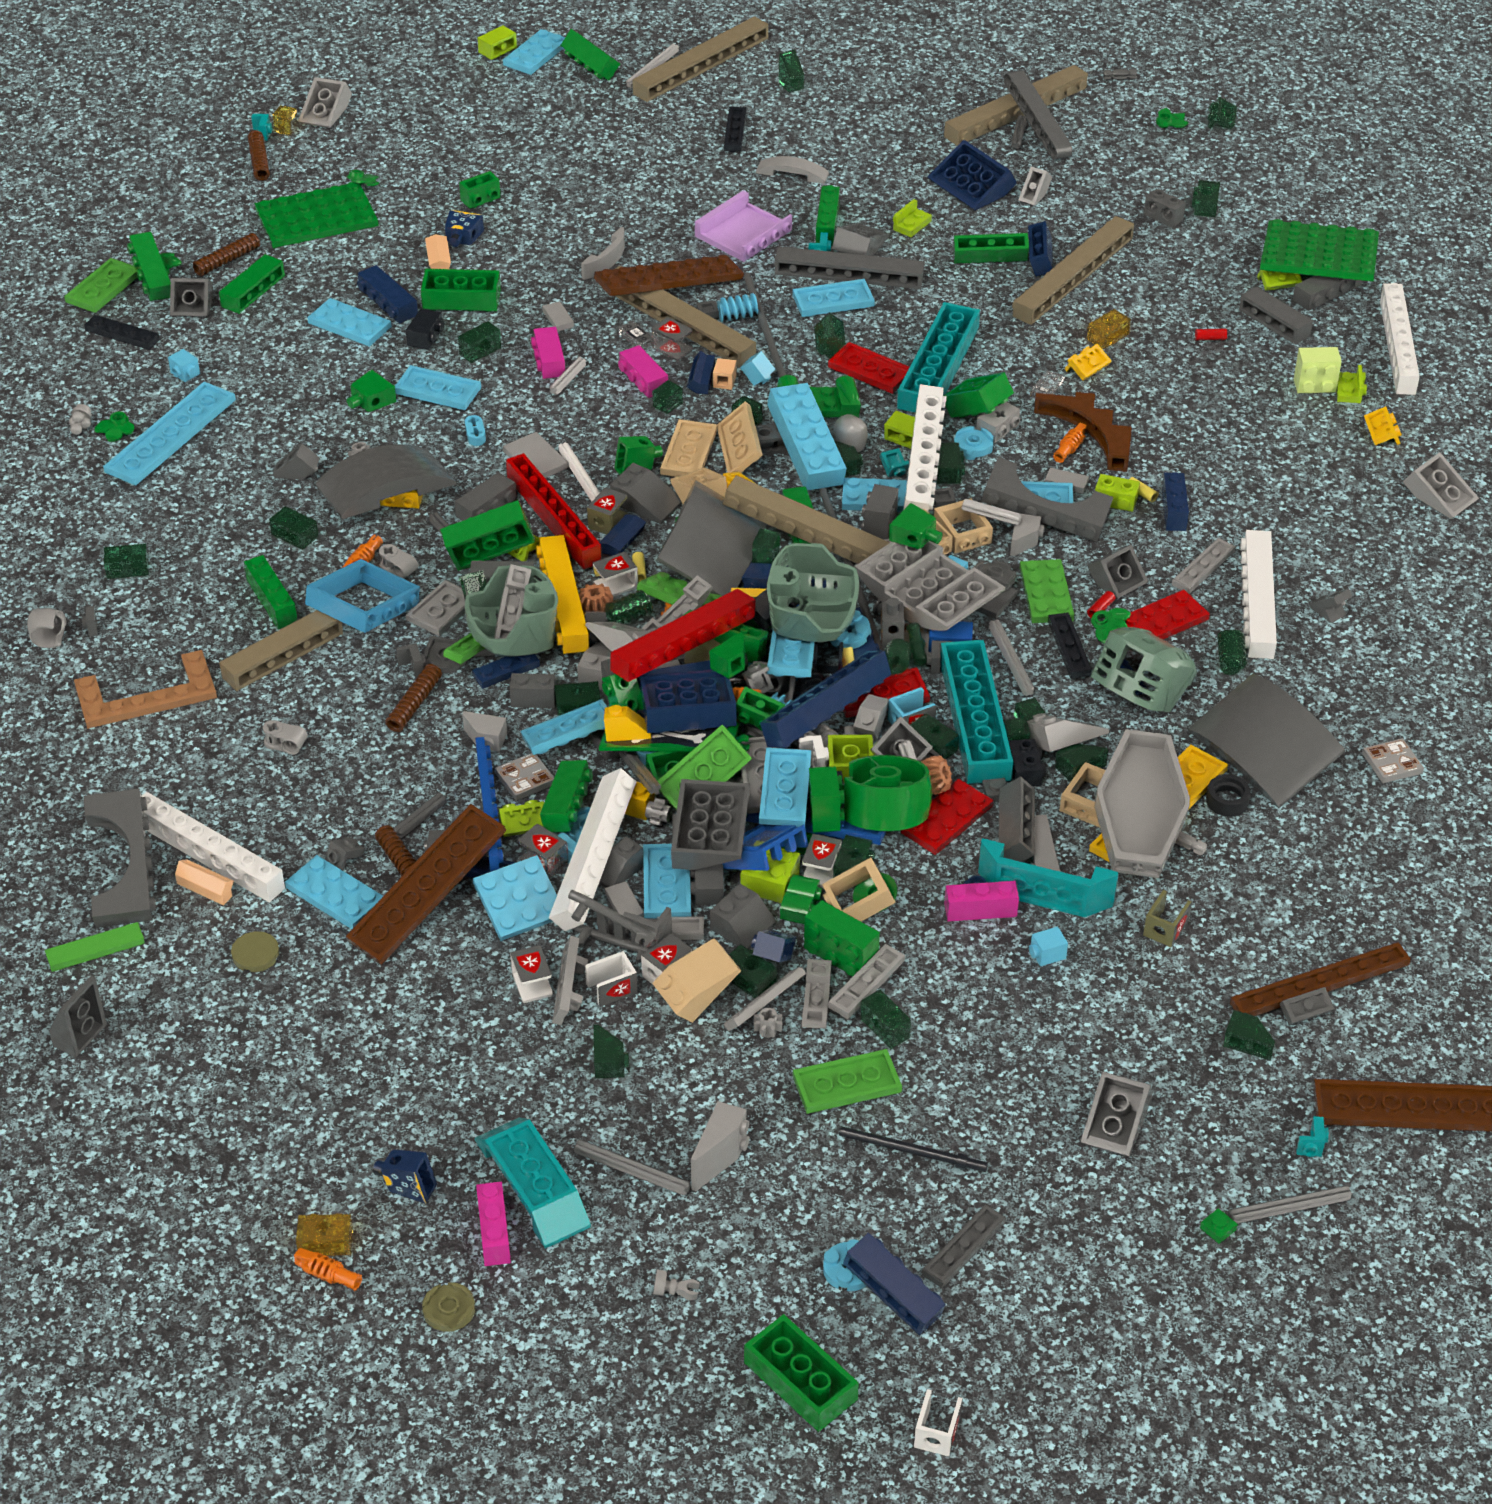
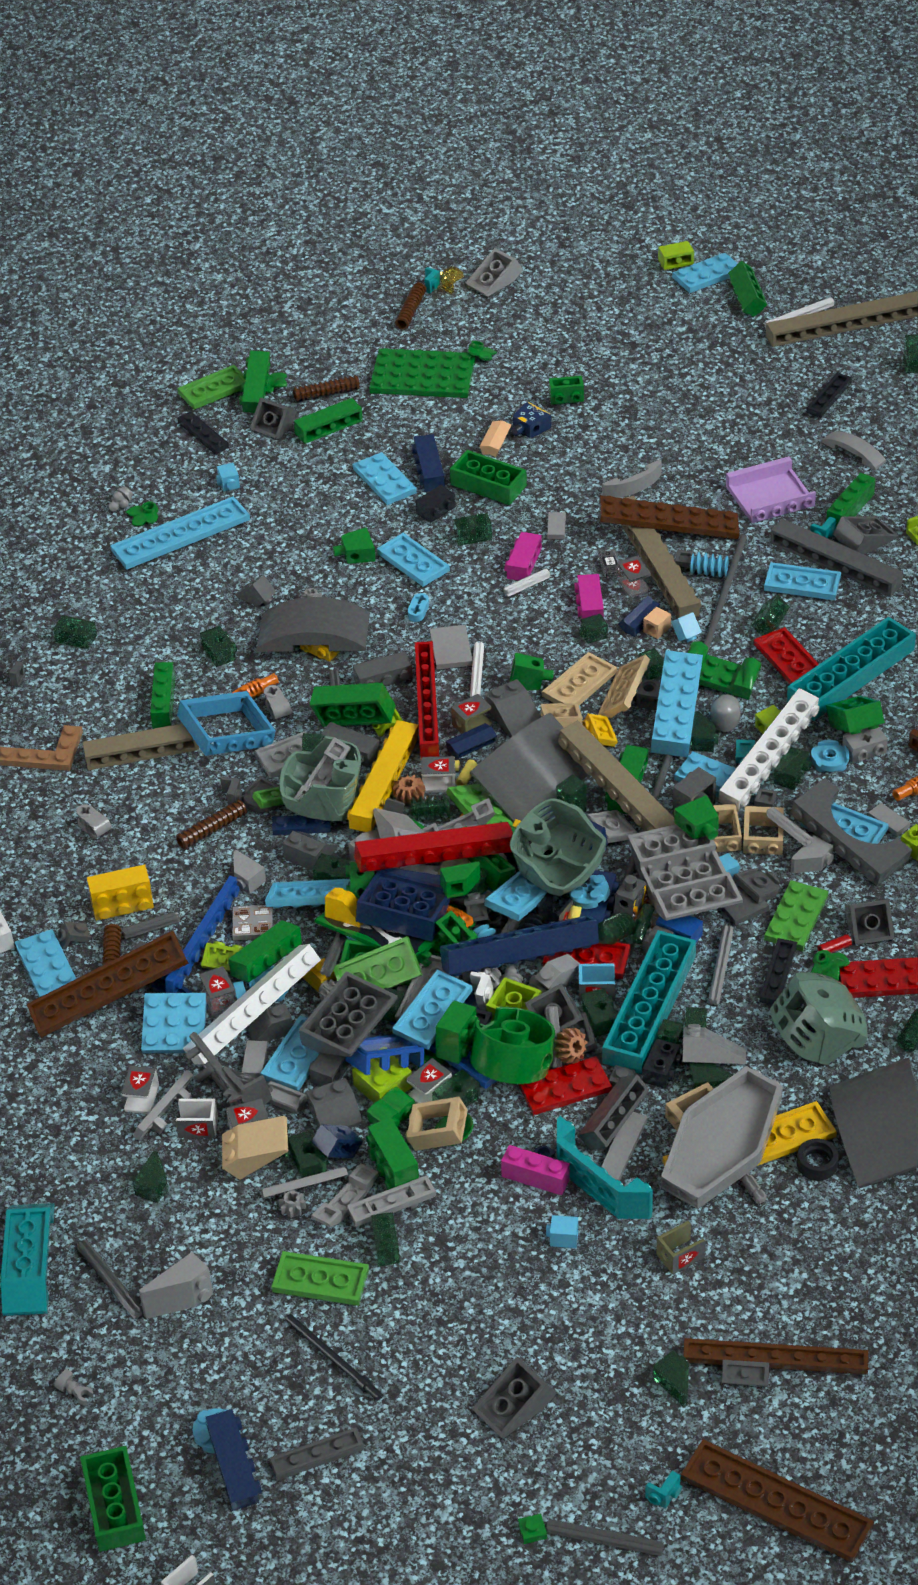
camera: 30 degrees right, 0 degrees up
(370, 792) = (120, 892): none -> yellow brick

